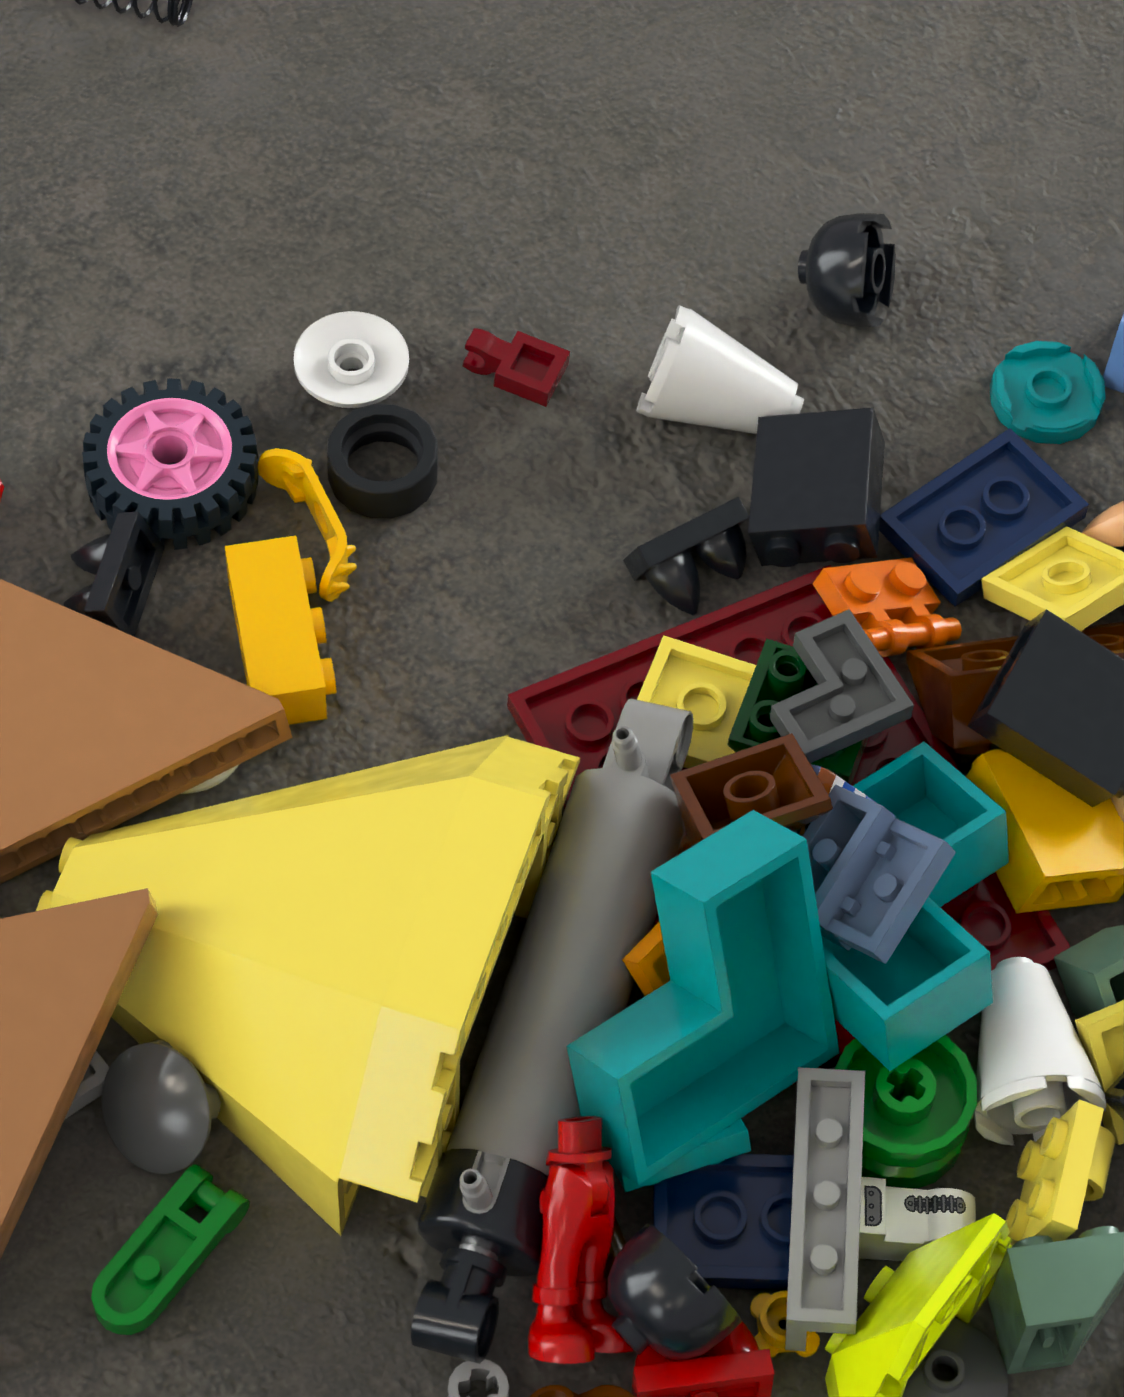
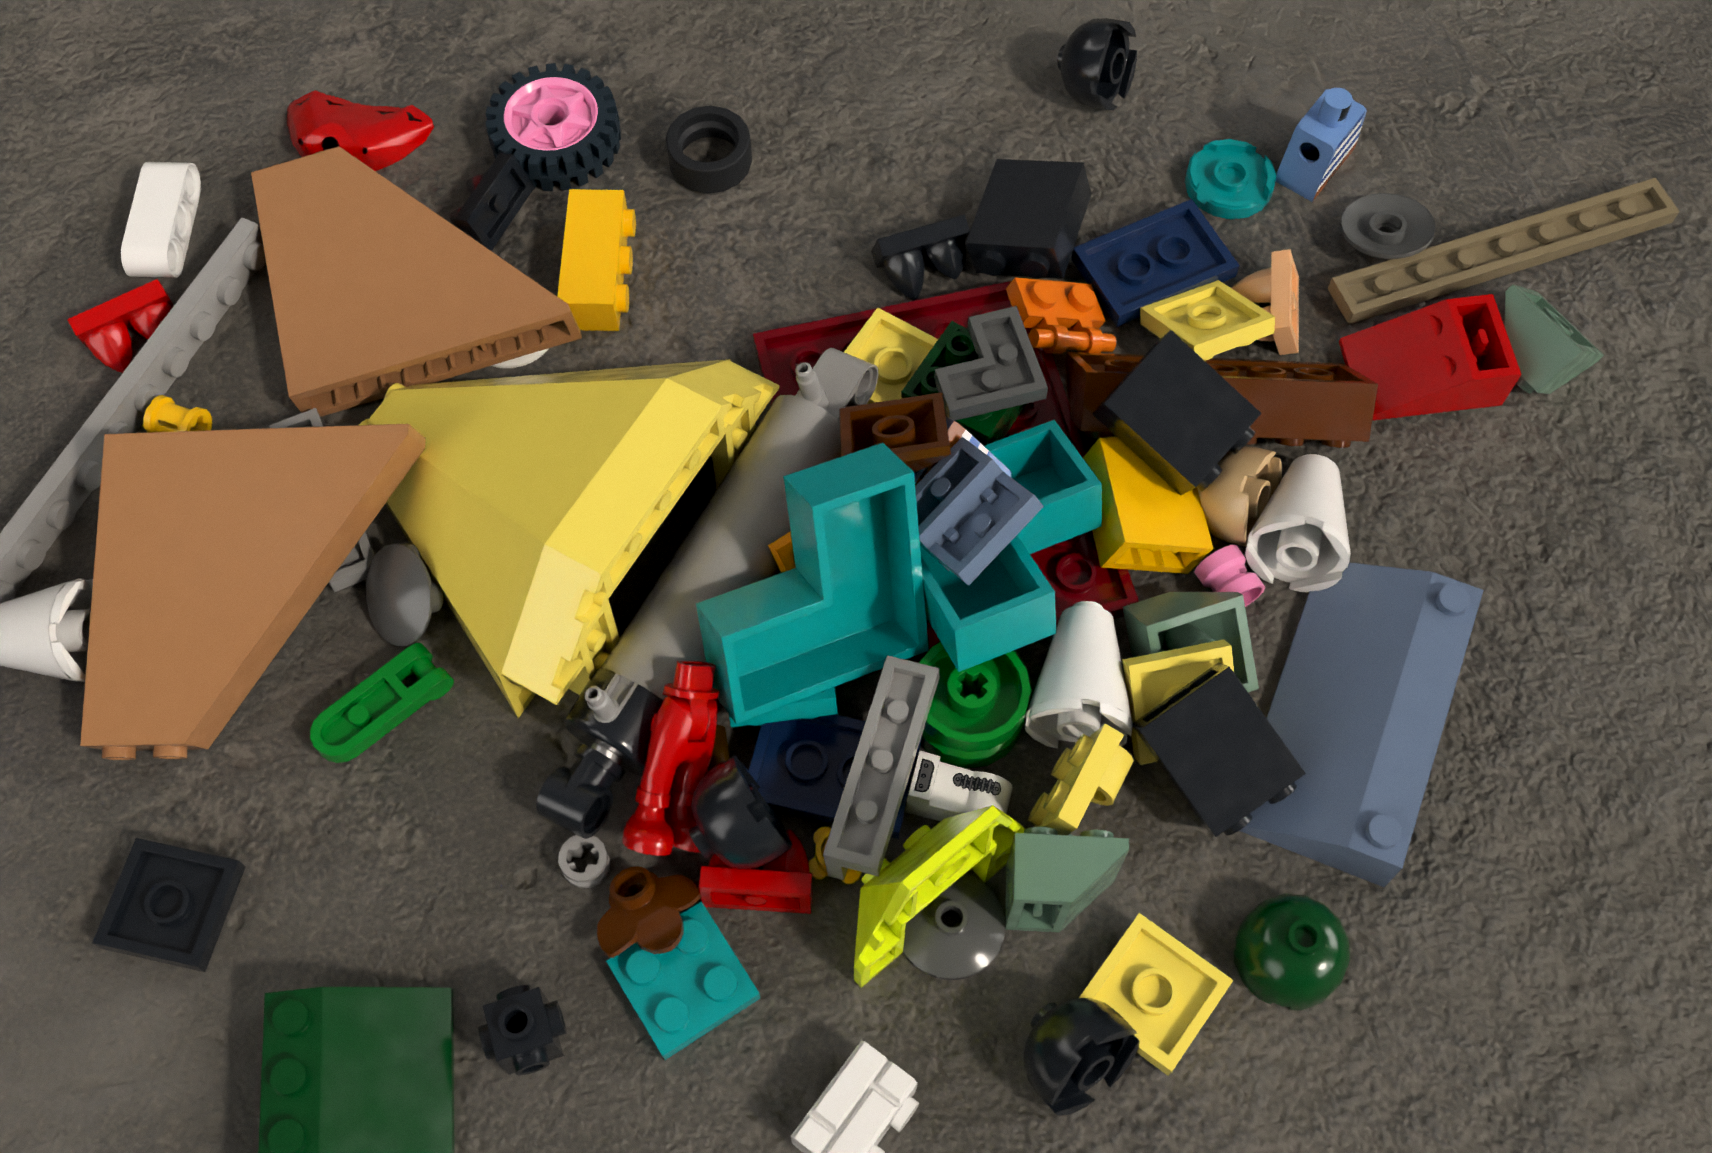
camera: 15 degrees right, 5 degrees up
(296, 476) = (638, 147): yellow piece -> none
(346, 343) = (706, 72): white dish -> none
(522, 367) = (832, 97): dark red plate -> none
(713, 379) = (969, 126): white cone -> none

